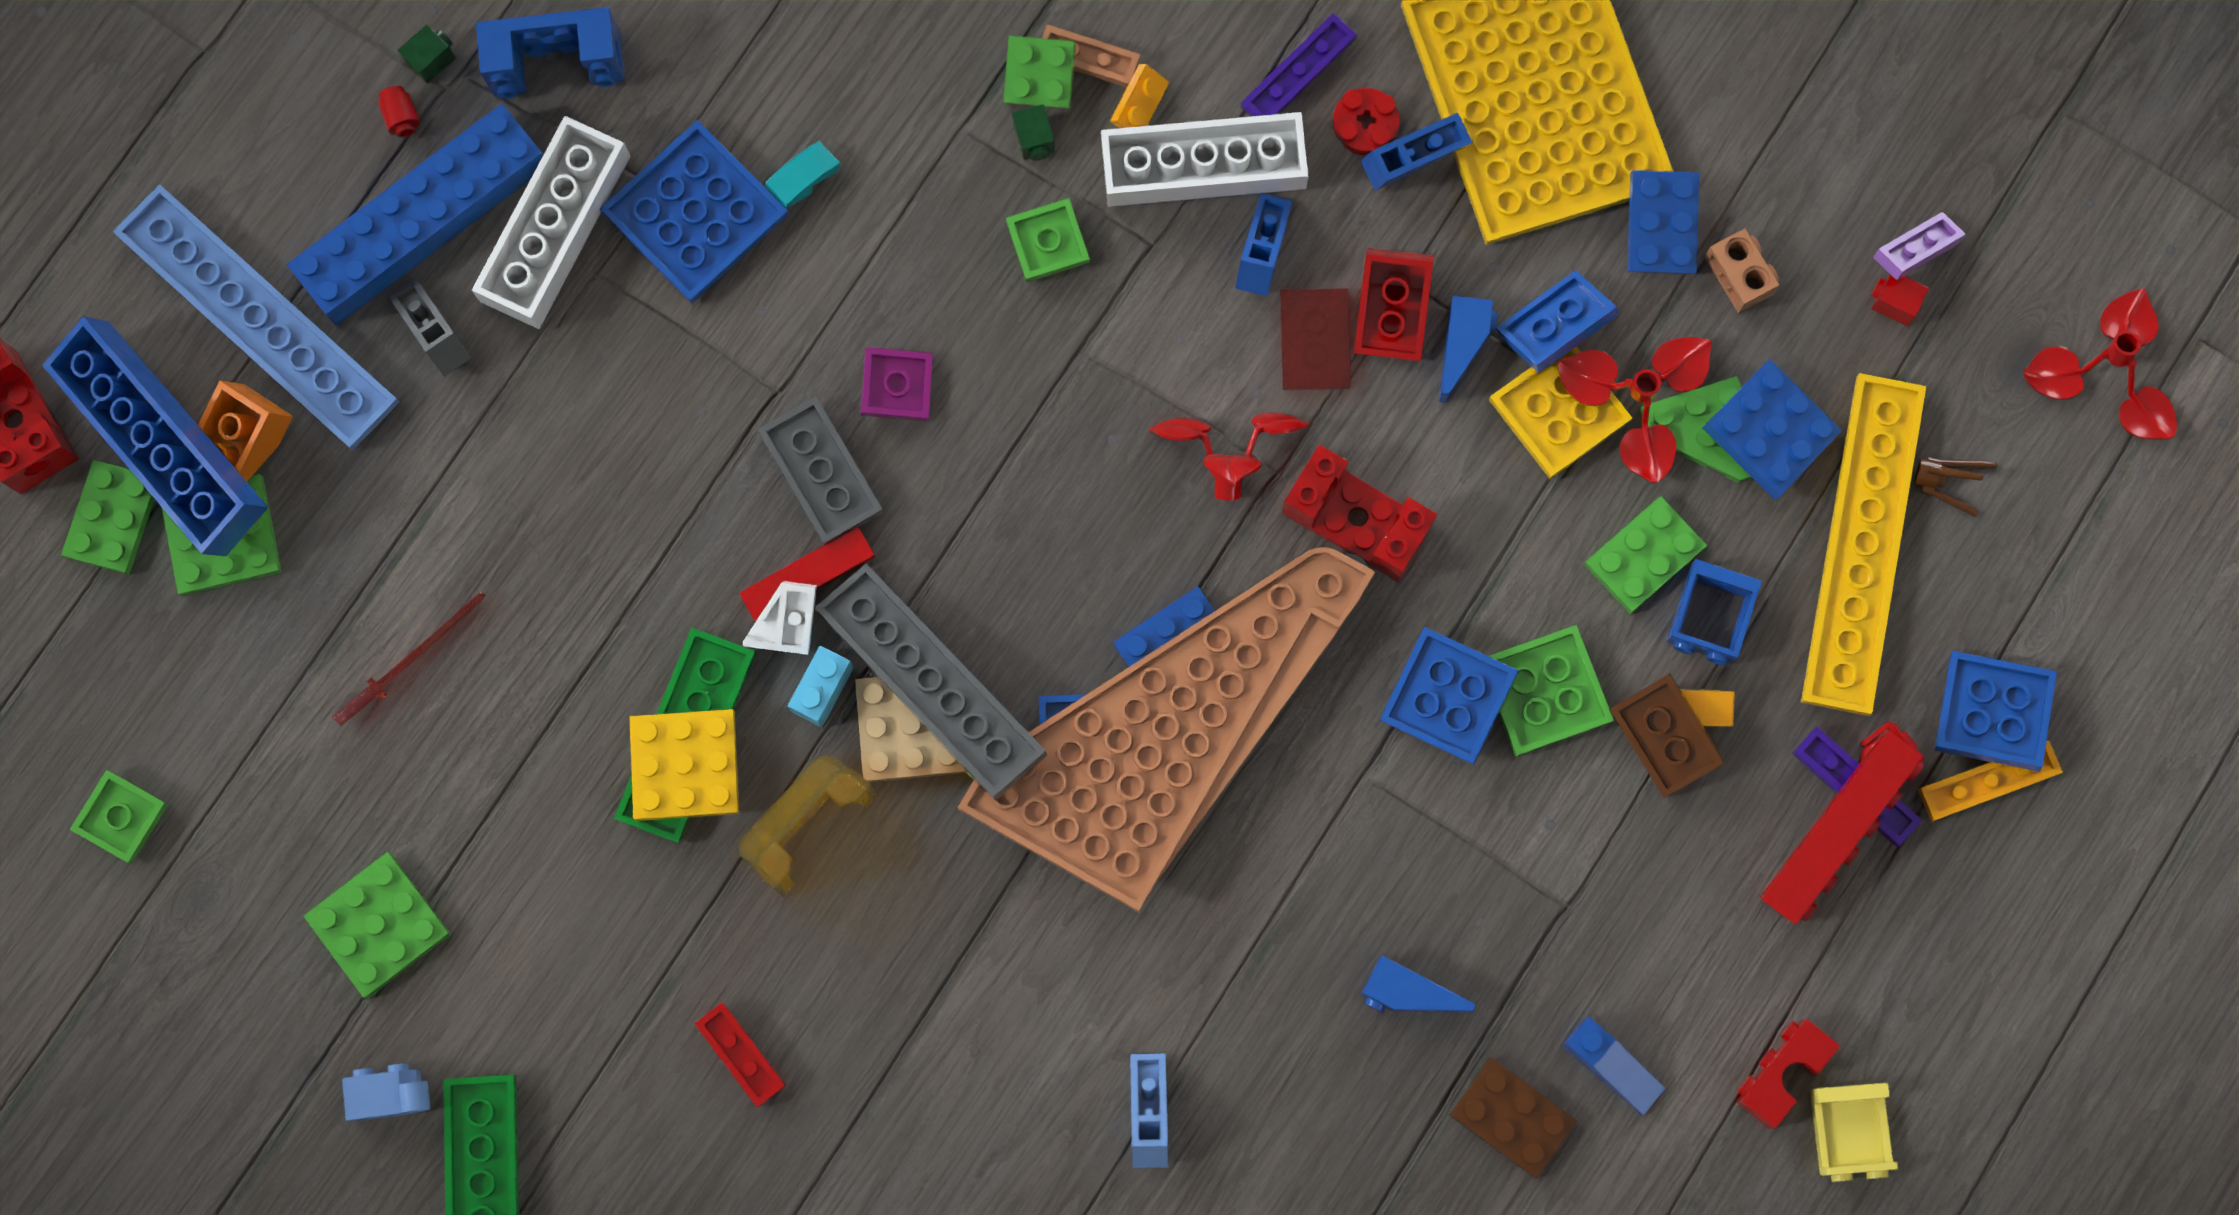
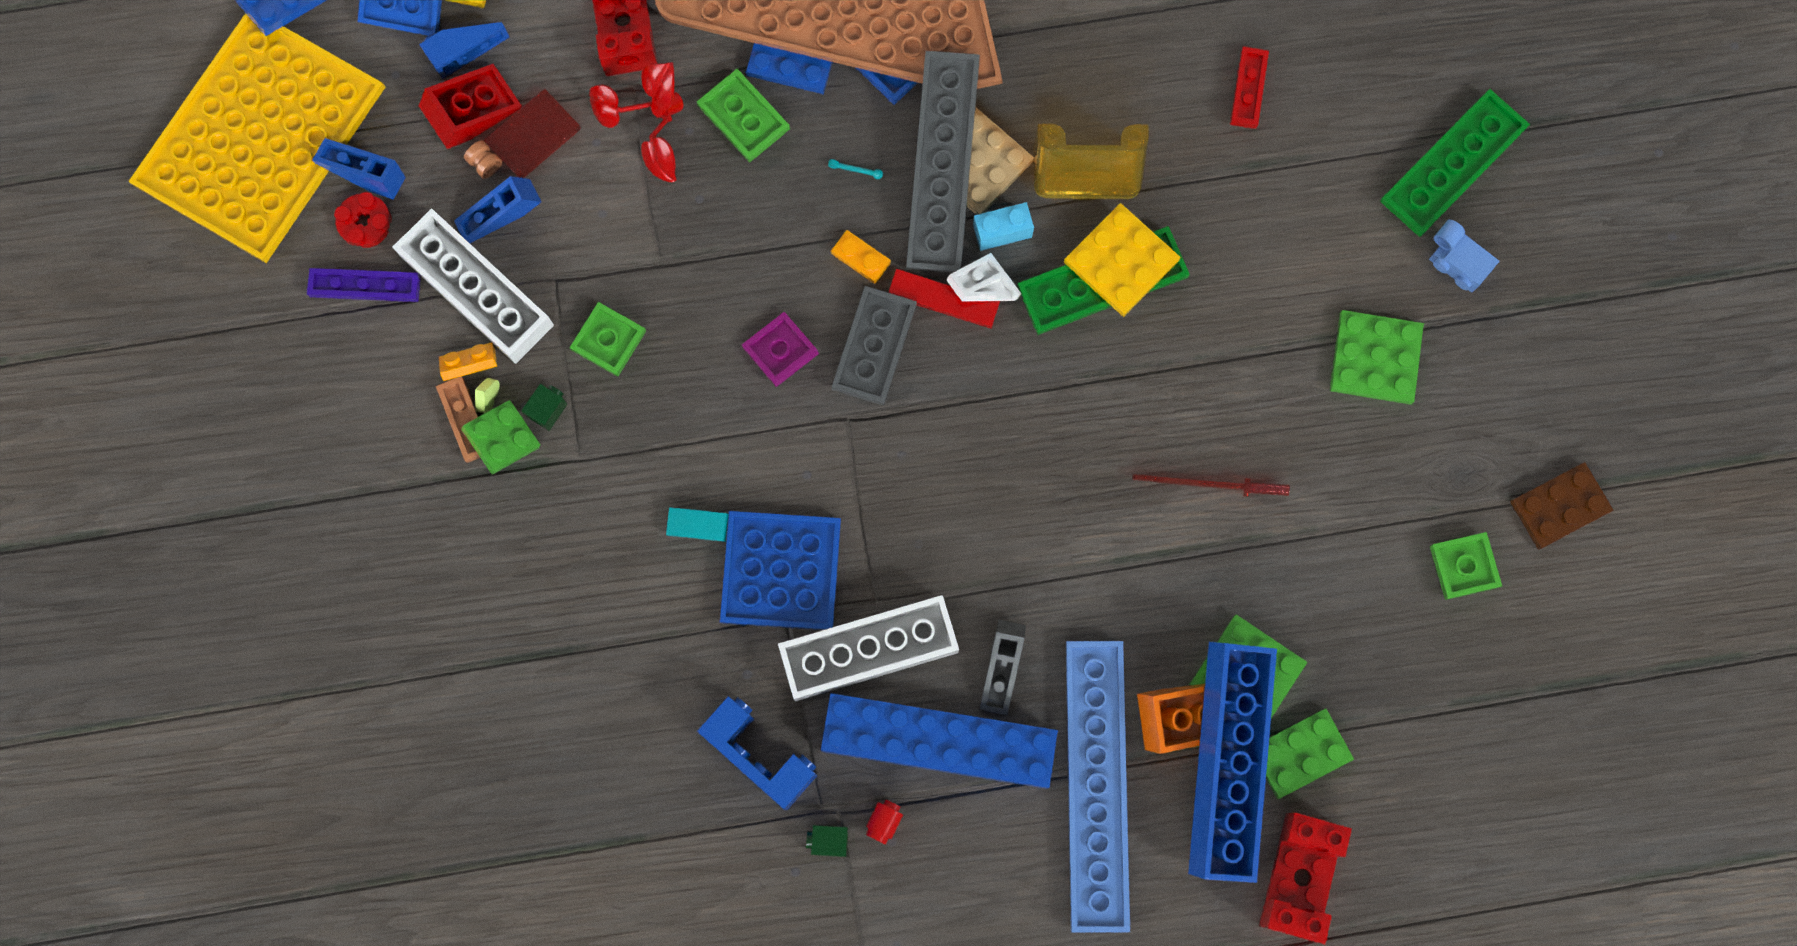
camera: 135 degrees left, 0 degrees up
(85, 962) = (1561, 505): none -> reddish brown plate
(917, 535) = (860, 256): none -> light orange plate
(985, 621) = (877, 174): none -> teal hinge
(1093, 93) = (486, 394): none -> yellowish green tile
(1155, 545) = (743, 115): none -> bright green plate
(1327, 271) = (484, 161): none -> nougat wheel

